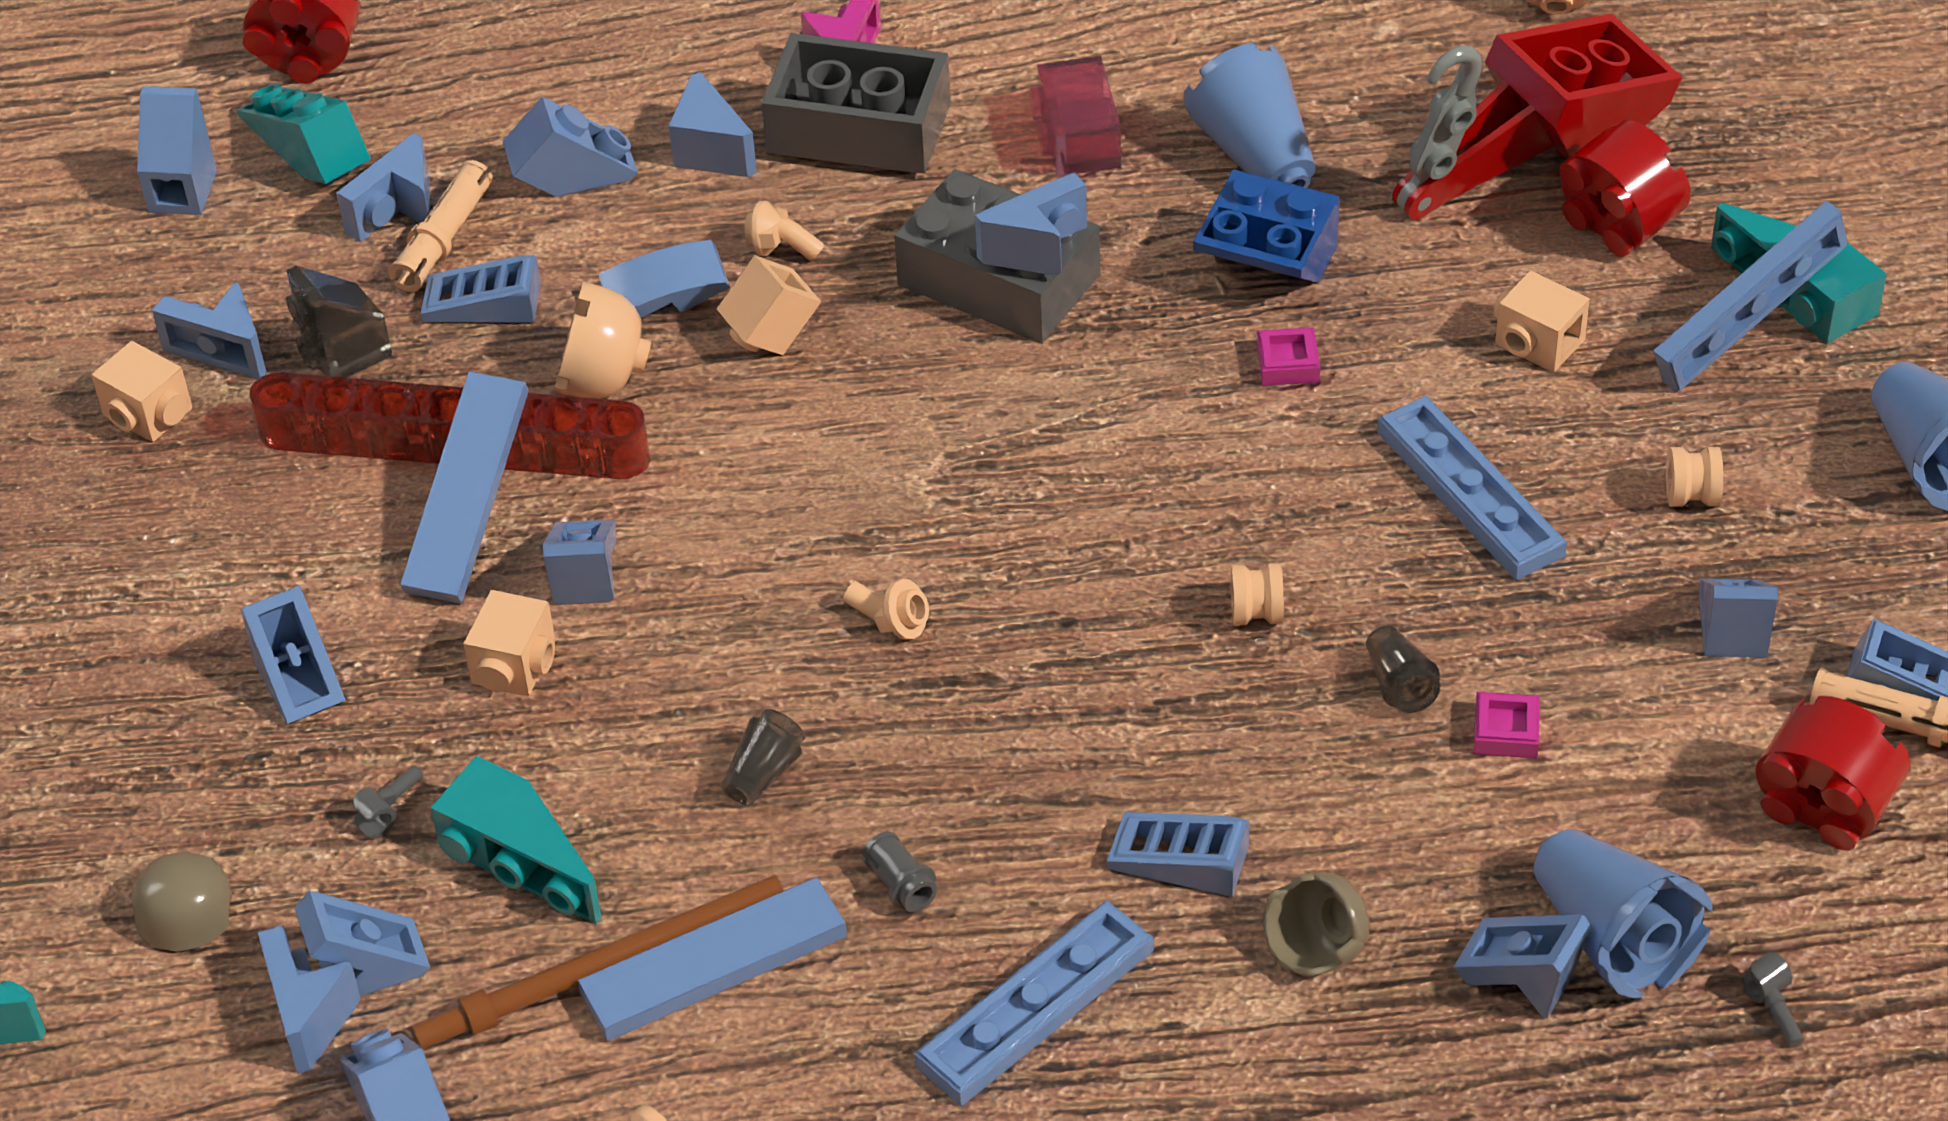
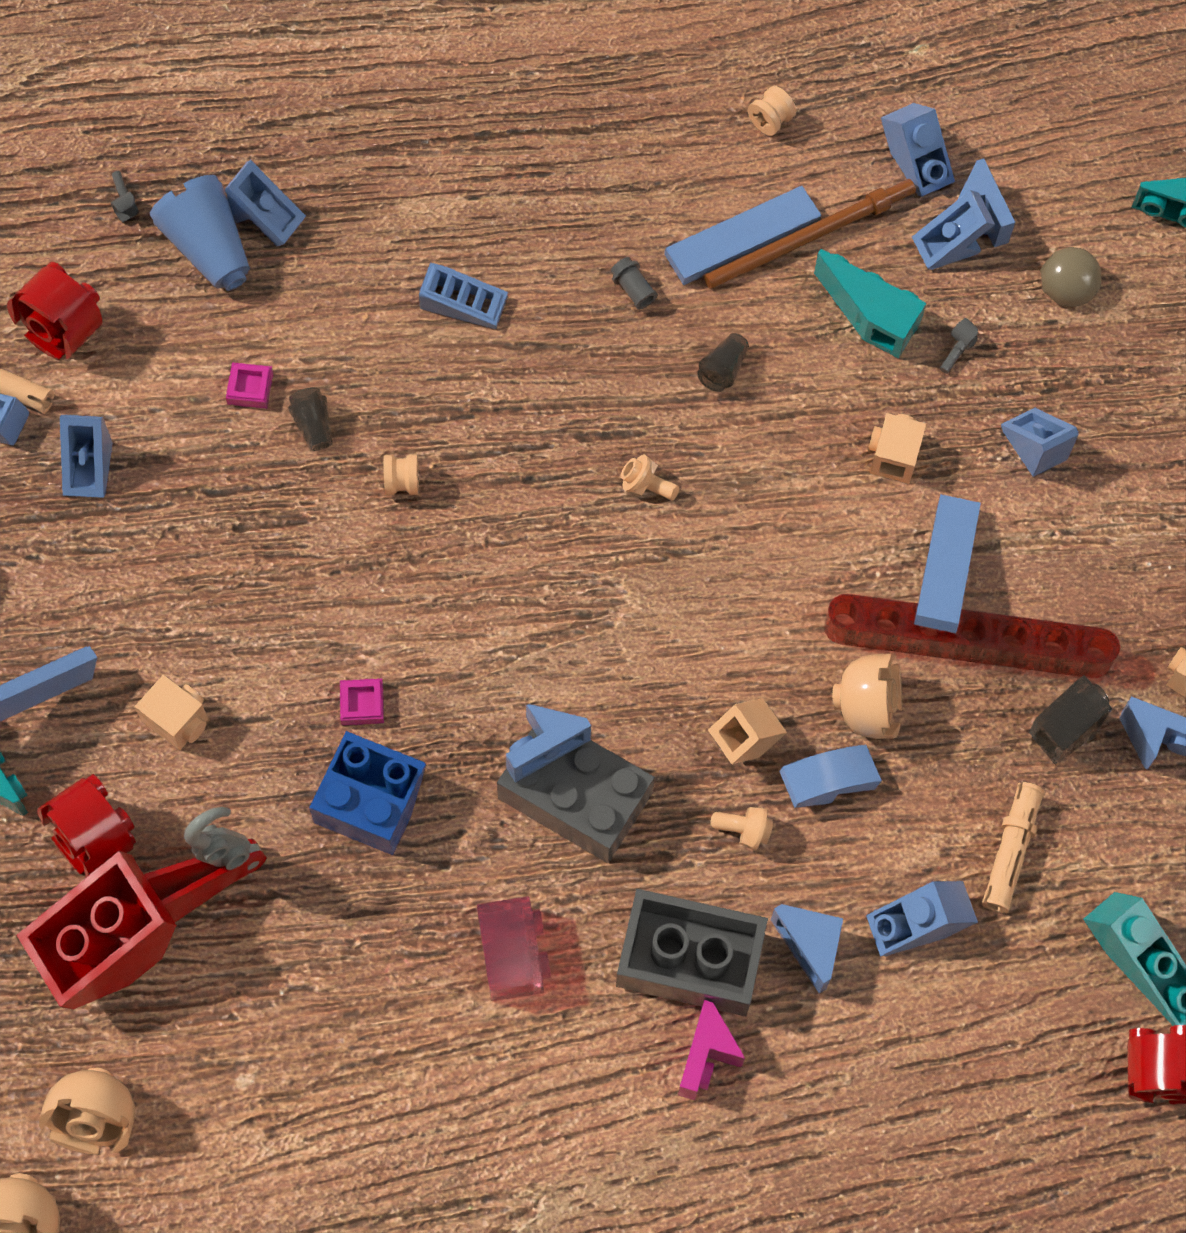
camera: 175 degrees right, 20 degrees up
(387, 187) = (1048, 886): medium blue slope -> none
(500, 292) = (940, 791): medium blue slope -> none
(580, 561) = (860, 513): medium blue slope -> none
(1033, 1003) = (551, 206): medium blue tile -> none
(1253, 113) = (367, 923): medium blue cone -> none
(1315, 923) = (382, 232): dark tan hair -> none
(1472, 488) = (246, 578): medium blue tile -> none
(1694, 476) = (89, 565): light nougat wheel -> none

